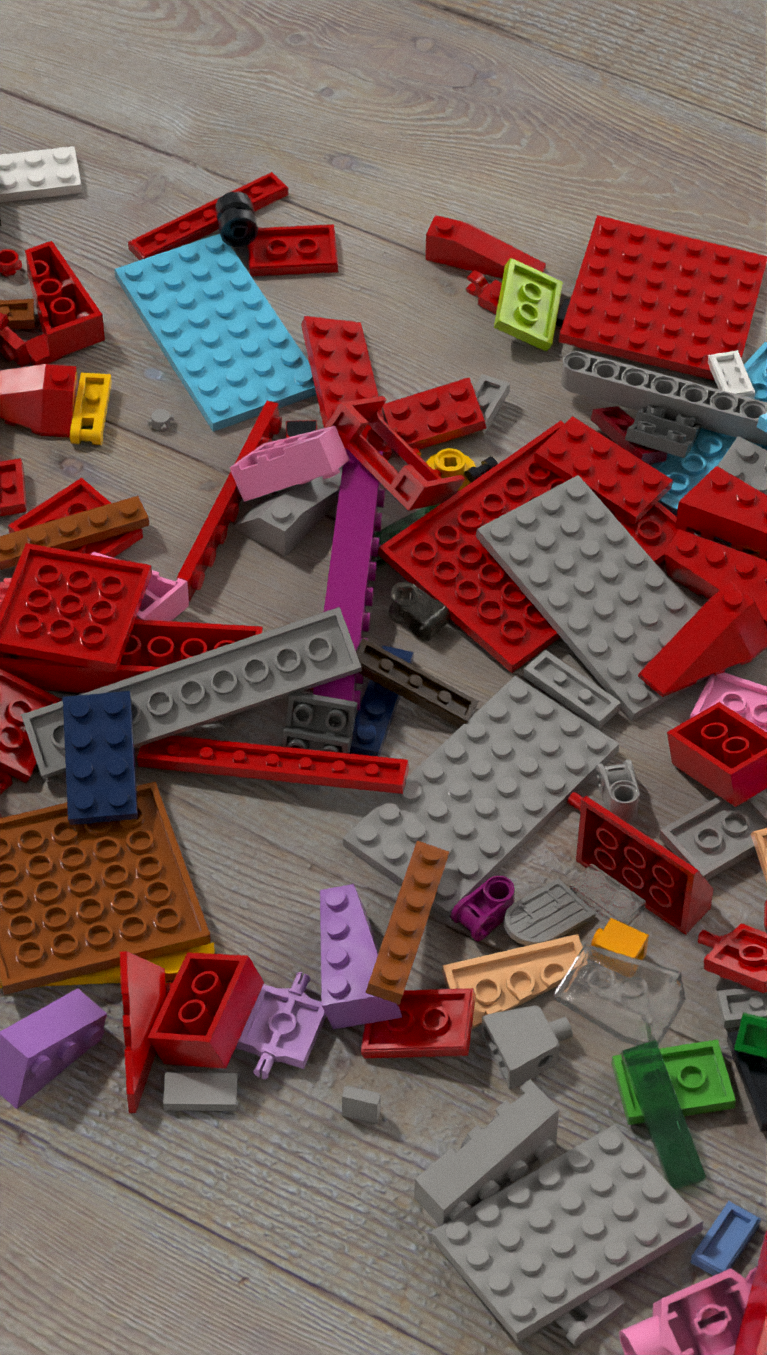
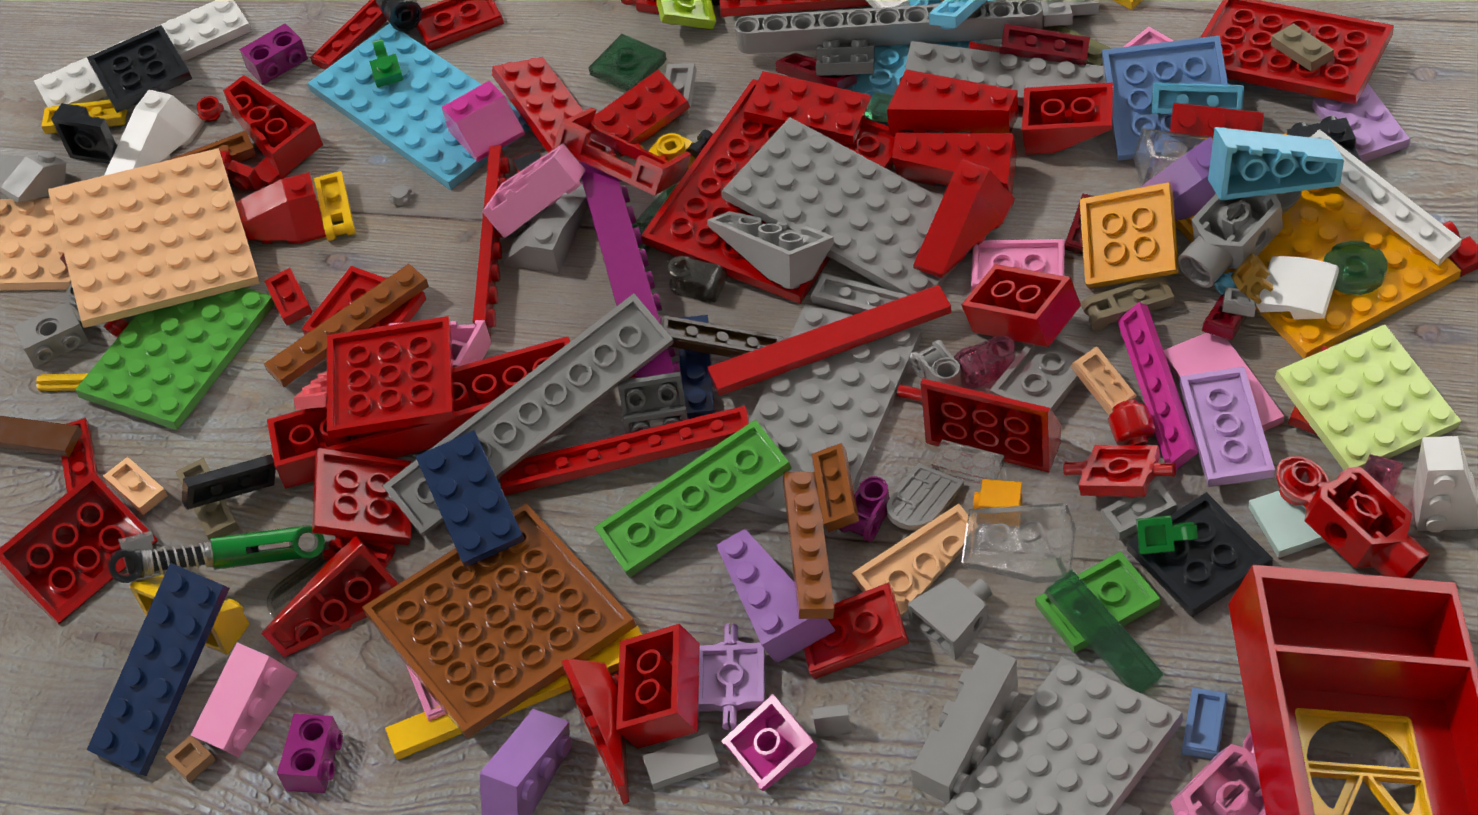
camera: 10 degrees left, 0 degrees up
(93, 226) = (273, 54): none -> magenta brick
(197, 280) = (385, 67): none -> green plate
(270, 371) = (482, 120): none -> dark pink slope
(293, 1105) = (770, 743): none -> dark pink slope
(318, 834) = (692, 498): none -> bright green plate
(443, 358) = (627, 62): none -> clear green plate
(460, 874) = (835, 487): none -> dark orange plate
(505, 608) = (773, 249): none -> light grey wedge
(522, 721) = (829, 340): none -> red tile
(671, 800) = (986, 361): none -> clear pink piece
(674, 493) = (878, 107): none -> clear green tile

